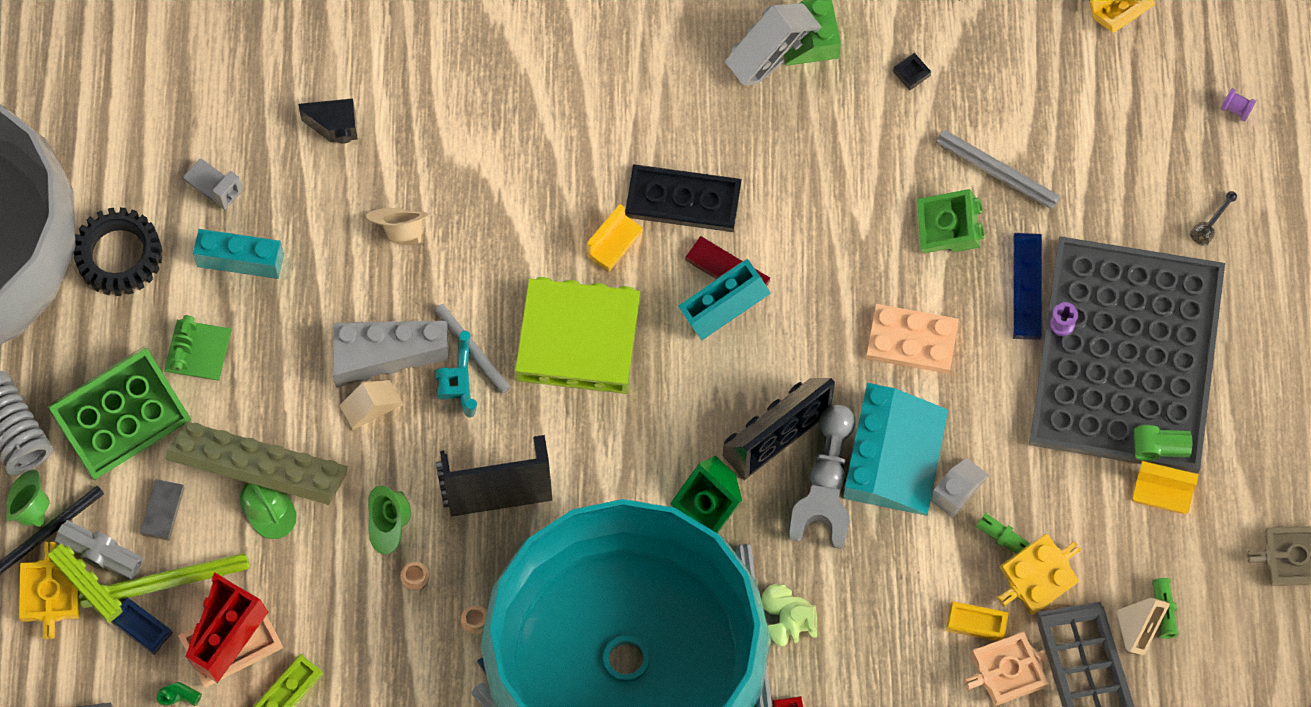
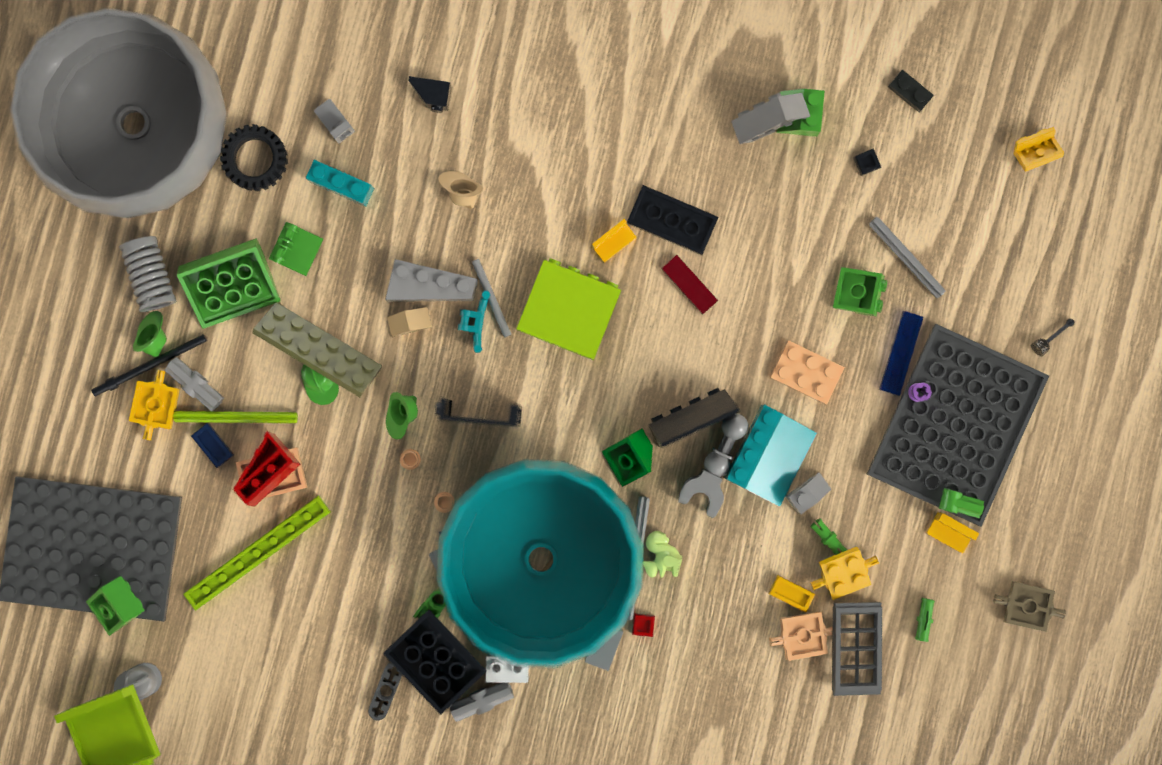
camera: 10 degrees right, 20 degrees up
(85, 582) = (178, 409): lime piece -> none
(162, 509) = (245, 364): flat silver tile -> none
(177, 692) = (227, 500): green arm -> none
(724, 299) = (680, 313): teal brick -> none
(1140, 623) = (904, 628): tan slope -> none
(1238, 104) = (1099, 253): medium lavender bush -> none

